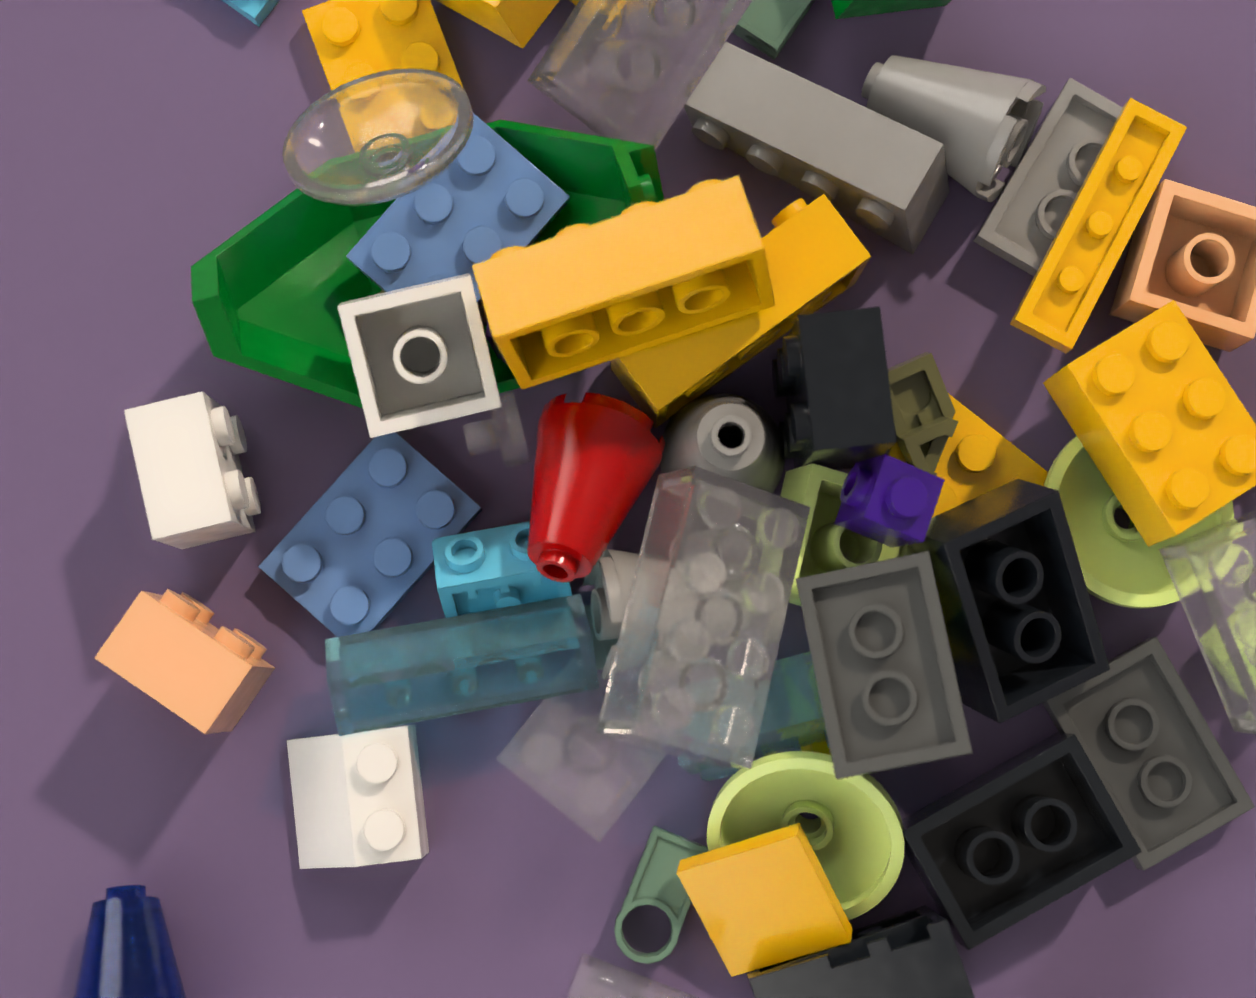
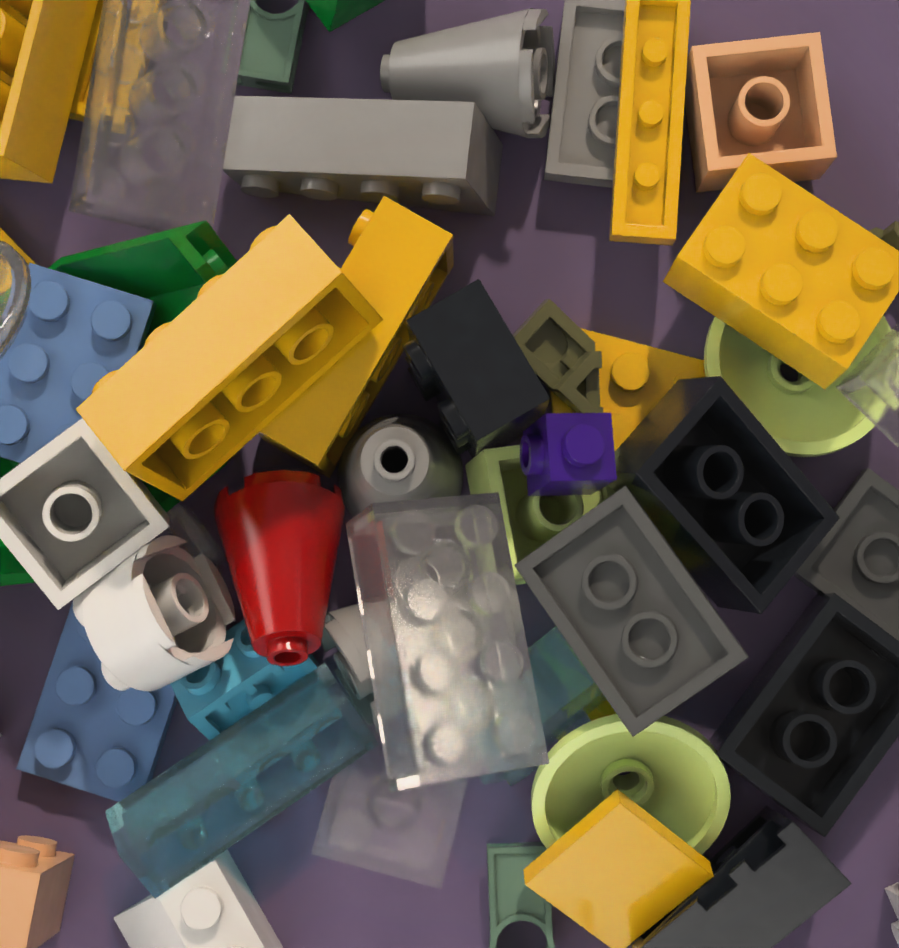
camera: 15 degrees left, 0 degrees up
(452, 483) = (157, 616): none -> white brick

